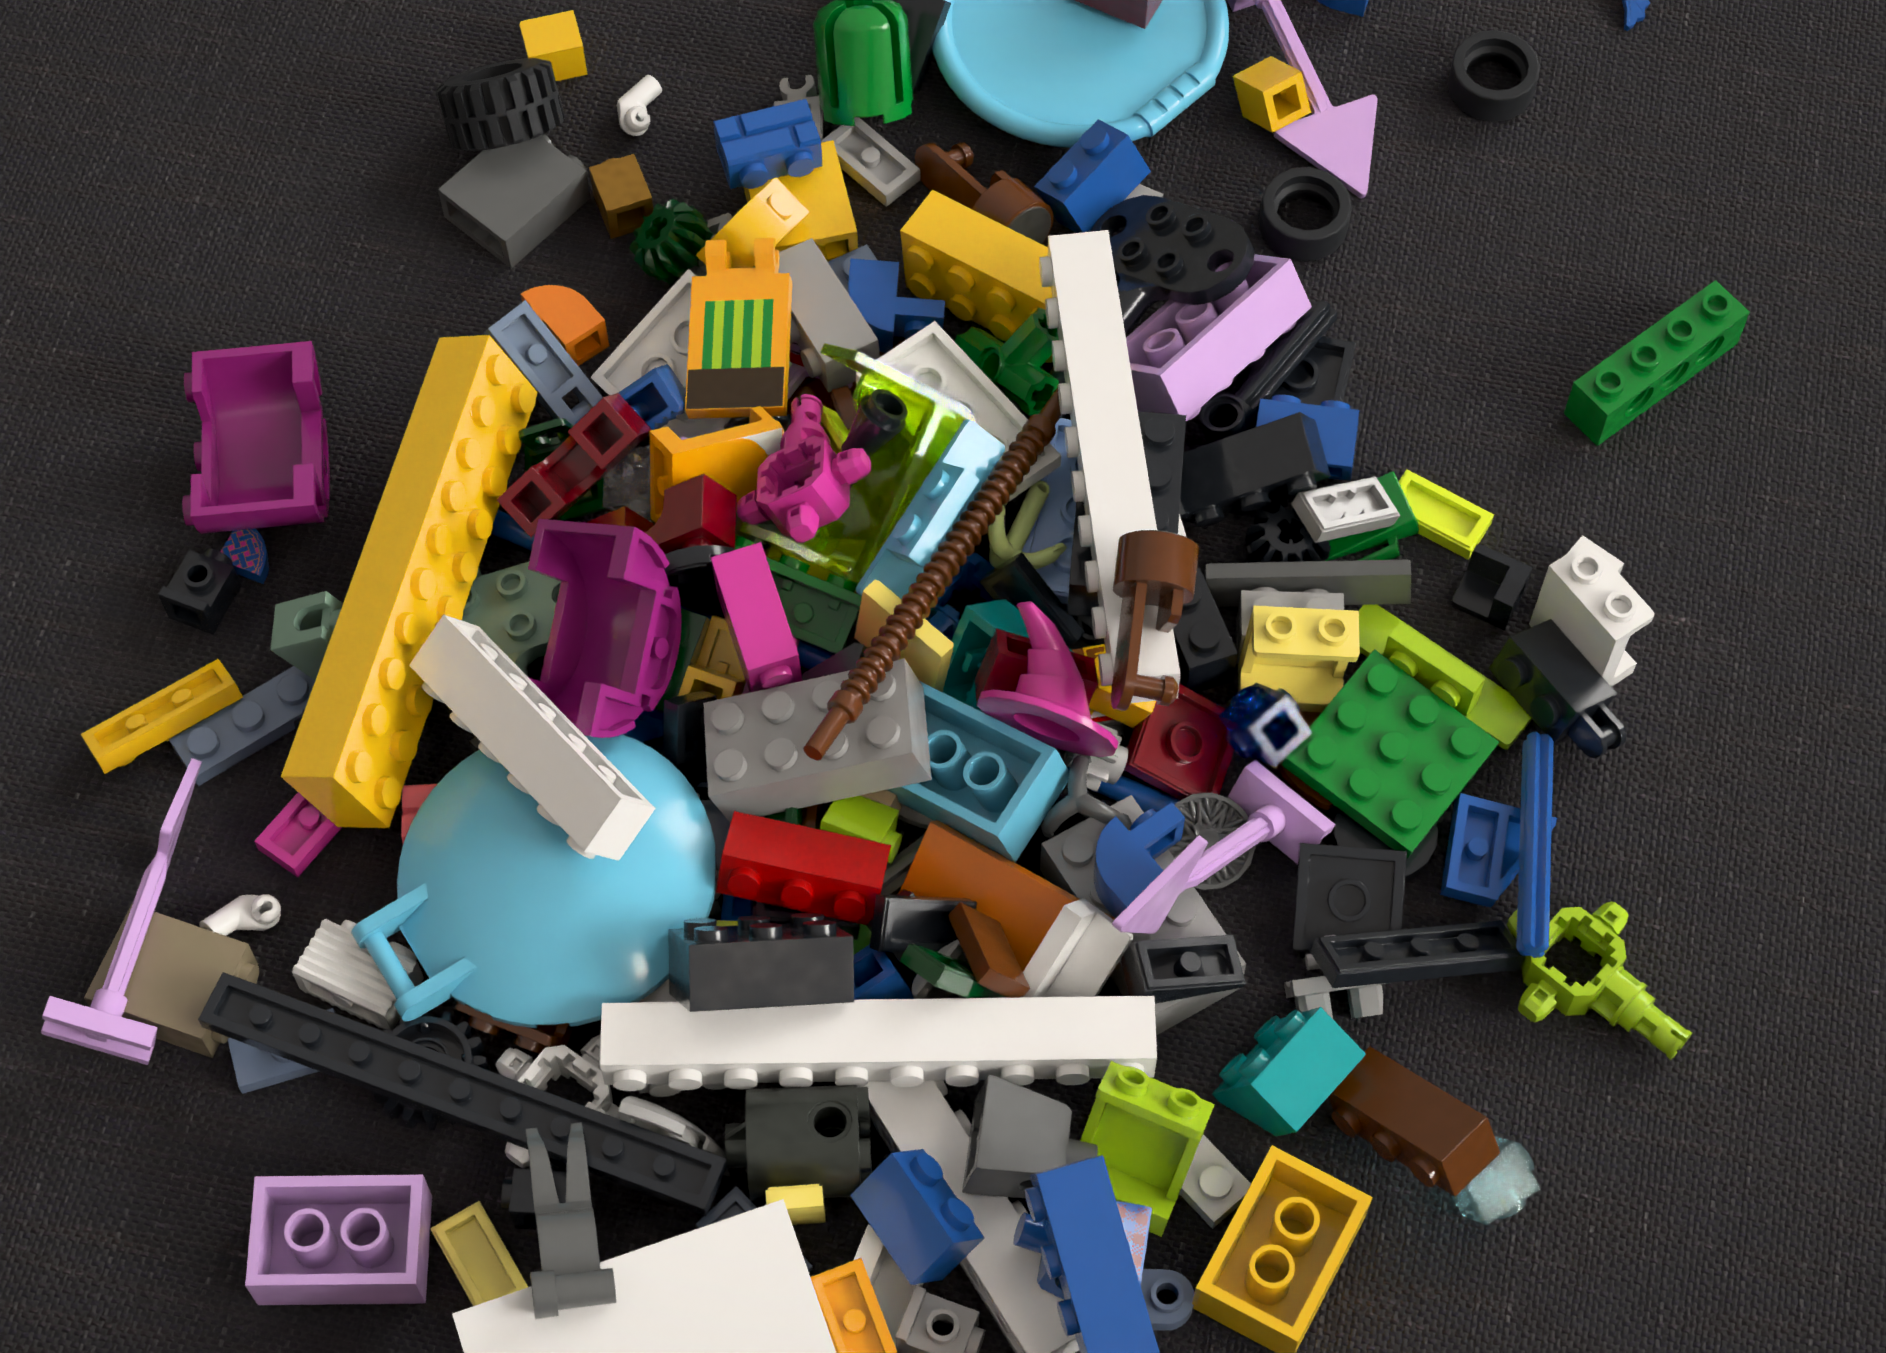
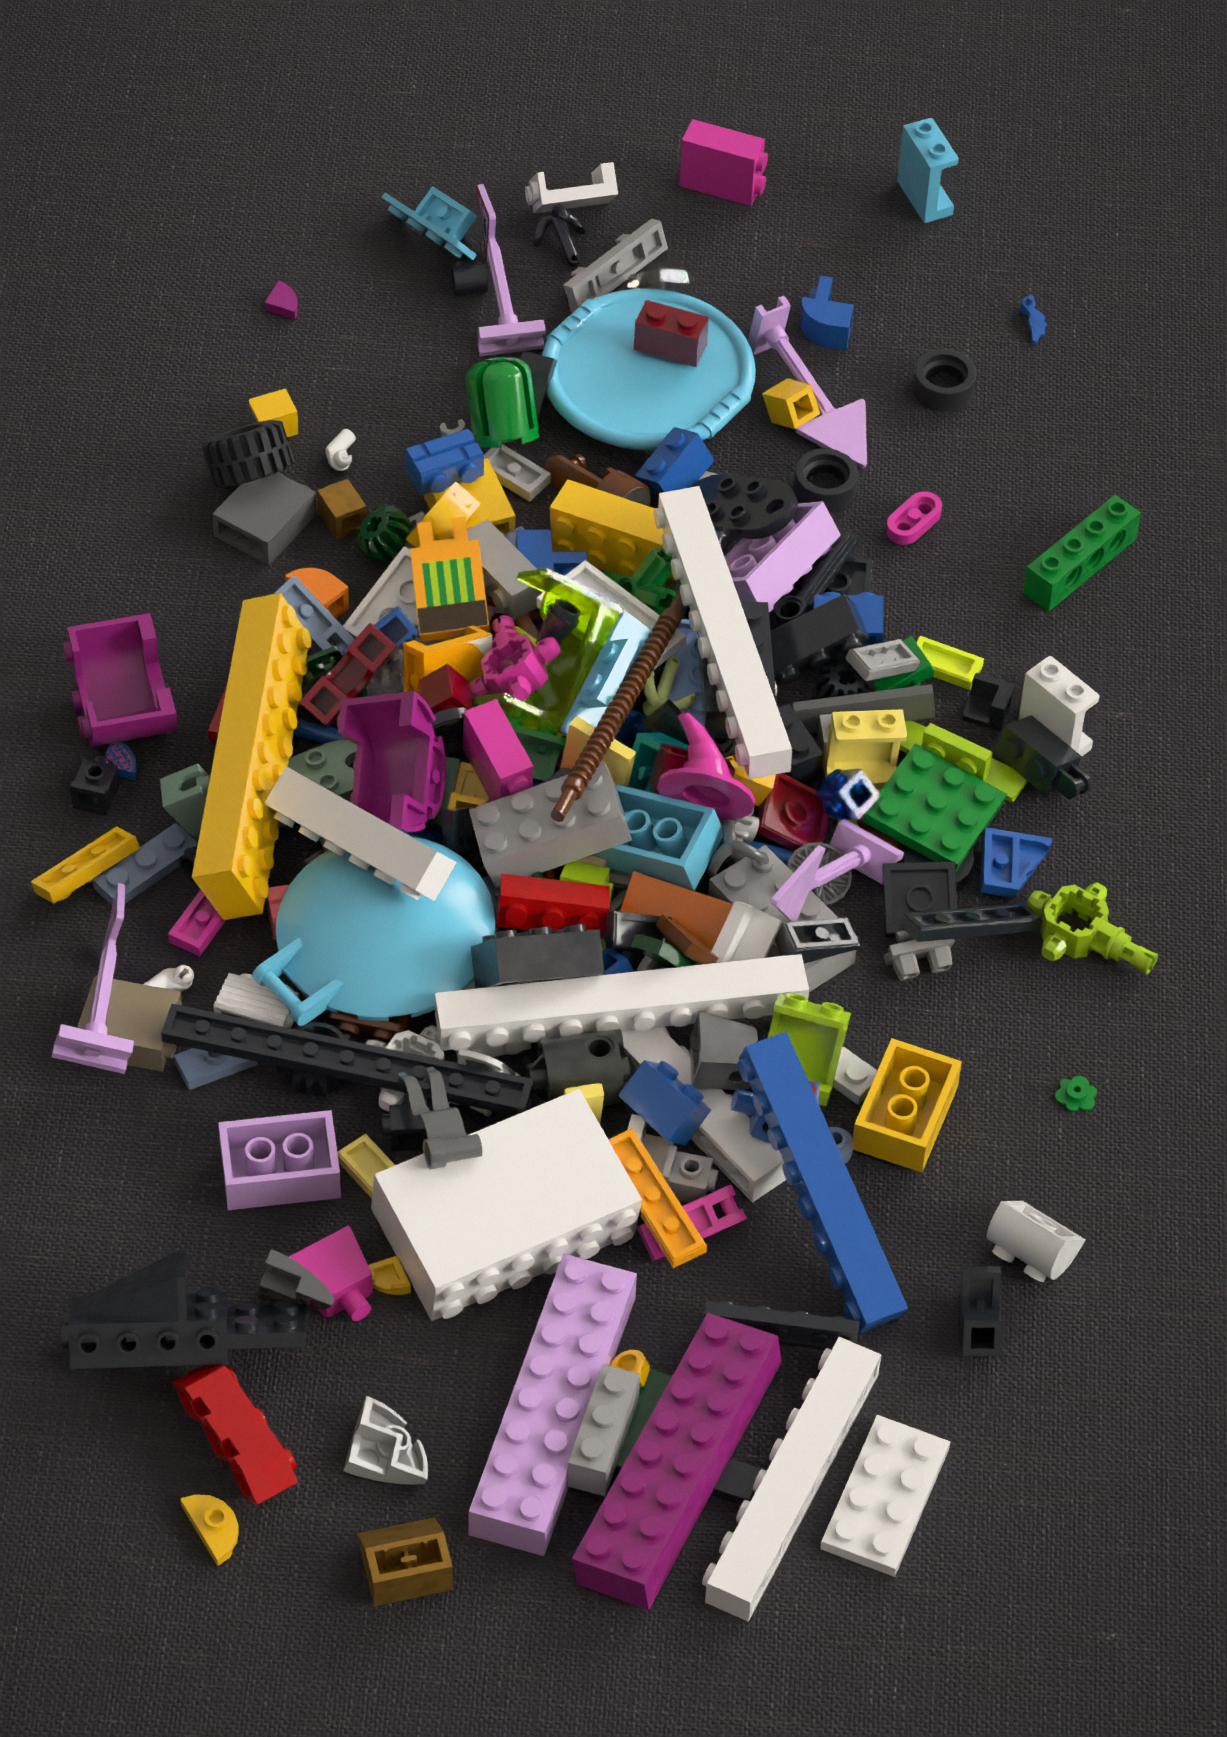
camera: 10 degrees left, 10 degrees down
(1126, 857) = (770, 873): blue brick -> none
(1153, 571) = (766, 685): reddish brown piece -> none
(1288, 1070) = (895, 998): teal slope -> none
(1413, 1123) = (981, 1017): reddish brown brick -> none
(1418, 285) = (909, 522): none -> dark pink plate
(1500, 1187) = (1037, 1052): clear light blue brick -> none
(1535, 845) = (1039, 851): blue axle -> none
(1536, 1261) = (1076, 1094): none -> green plant

